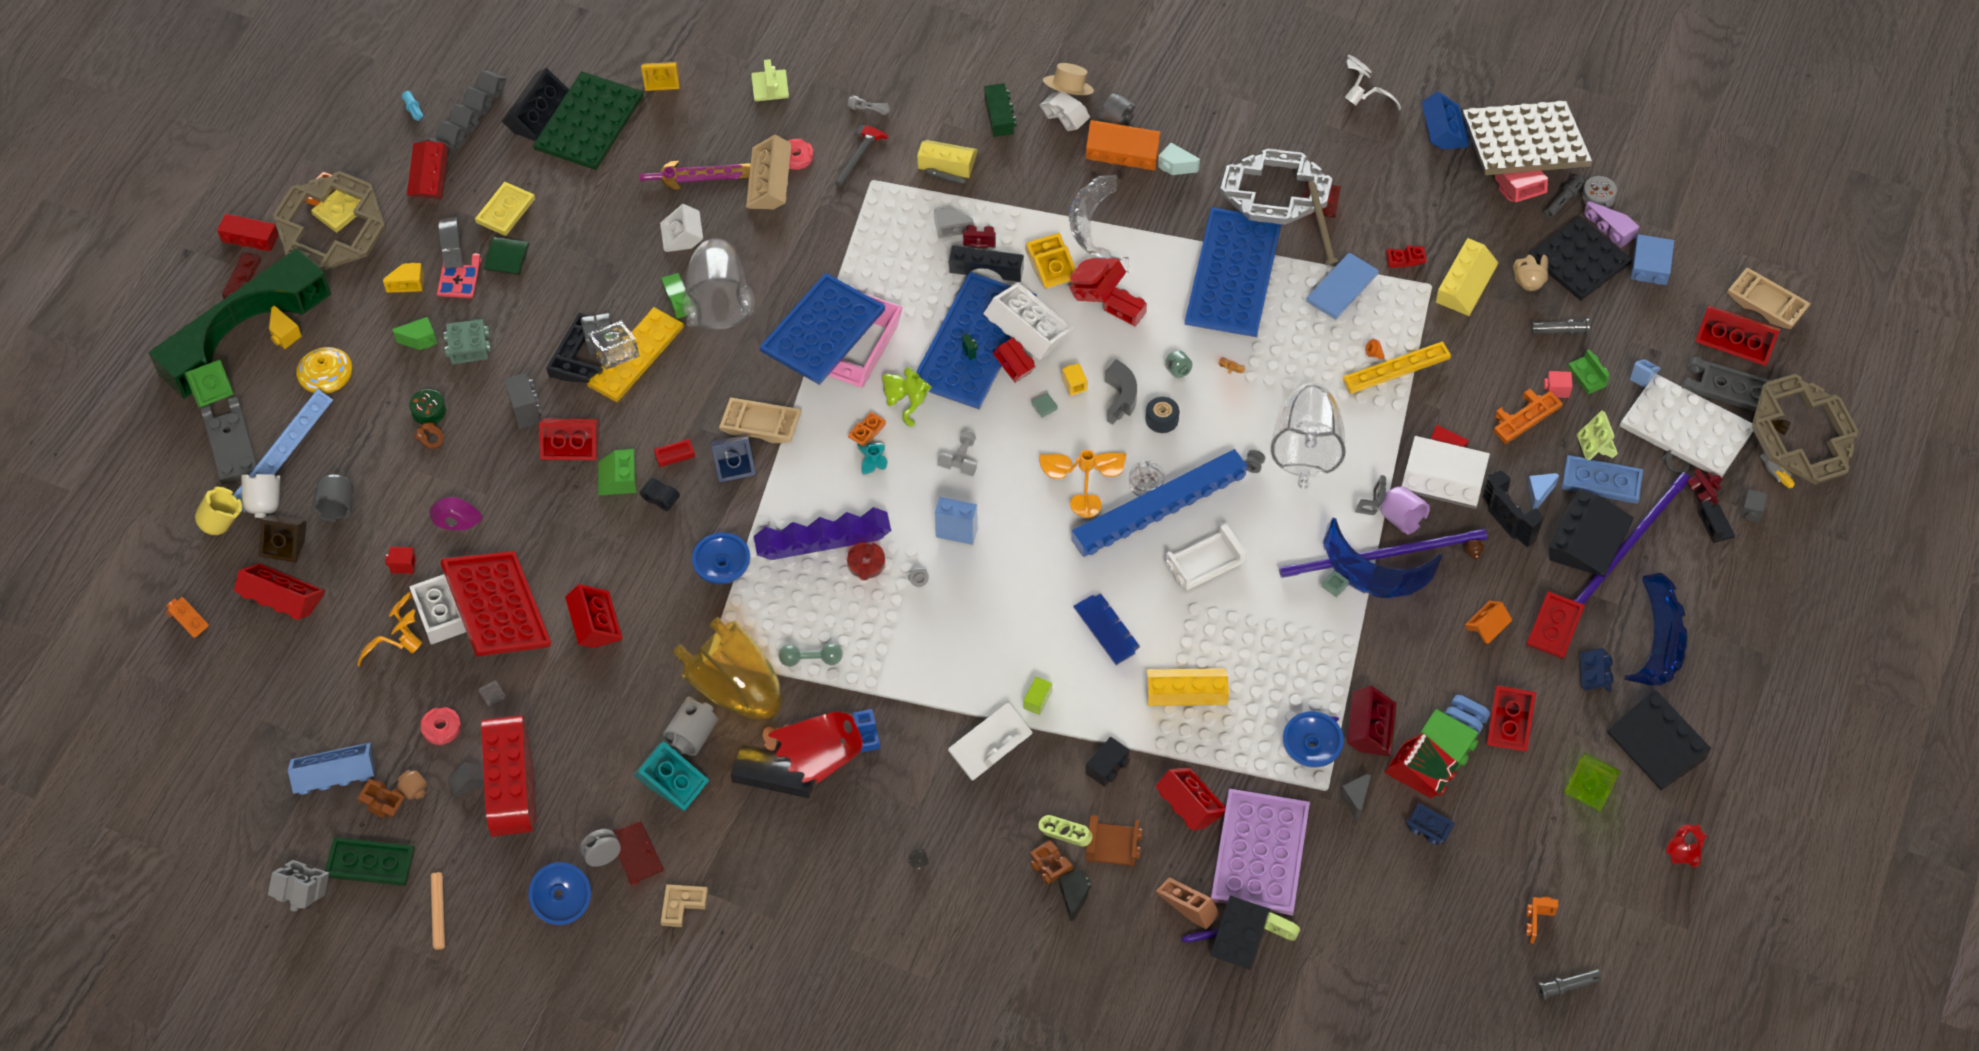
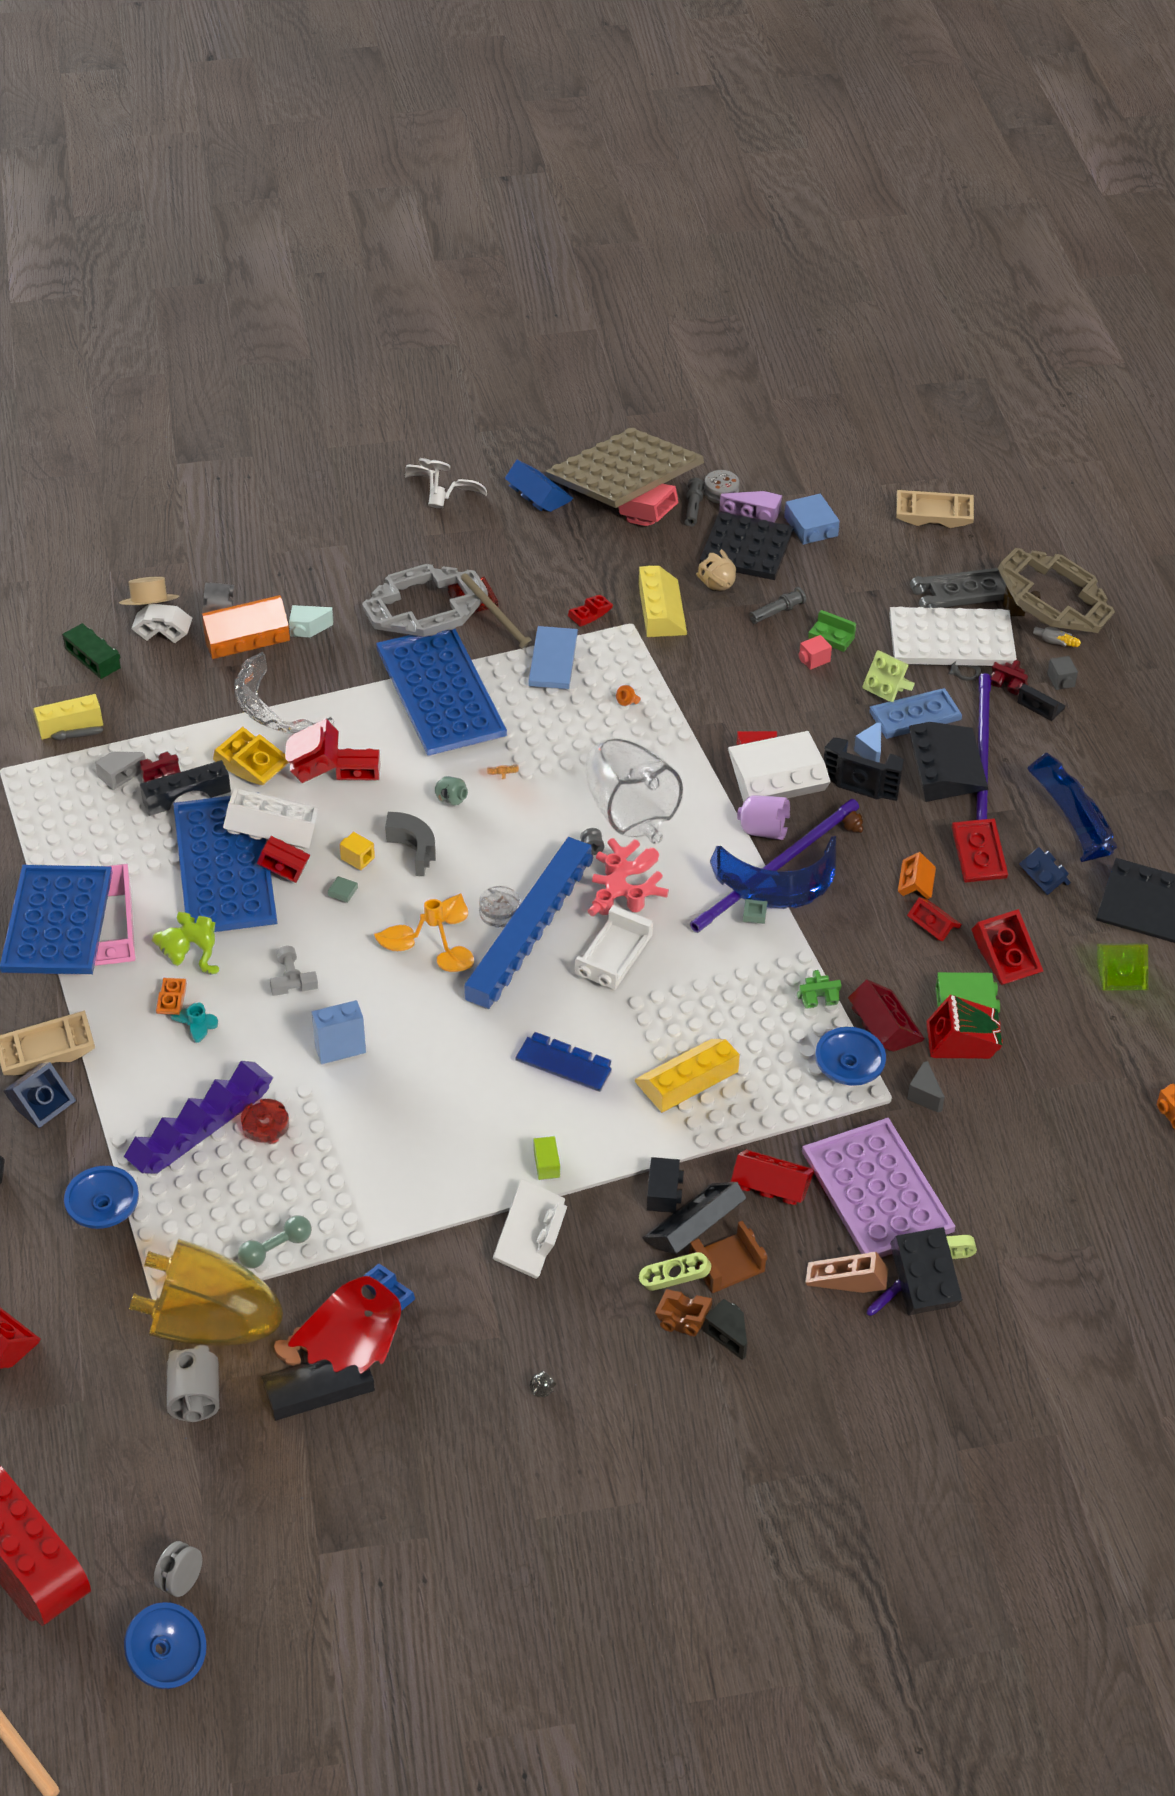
camera: 35 degrees left, 10 degrees down
(634, 855) = (219, 1558): clear red door -> none
(671, 776) = (203, 1449): teal slope -> none
(681, 897) = (307, 1575): tan plate -> none
(918, 577) = (334, 1109): light grey plate -> none
(969, 346) = (227, 867): dark green plate -> none
(1110, 798) = (695, 1217): none -> black slope
(1162, 414) = (470, 842): black wheel -> none
(1255, 495) = (617, 870): none -> coral plant
(1325, 672) = (819, 986): none -> bright green hips
(1378, 497) = (734, 815): dark grey piece -> none
(1396, 367) = (658, 703): yellow tile -> none
(1430, 824) = (1013, 1078): dark blue bracket -> none
(1468, 712) = (965, 961): medium blue brick -> none
(1474, 662) = (932, 918): none -> red panel
(1536, 410) = (812, 684): orange hinge -> none
(1644, 372) = (880, 611): light blue slope -> none
(1737, 335) = (933, 546): red slope -> none

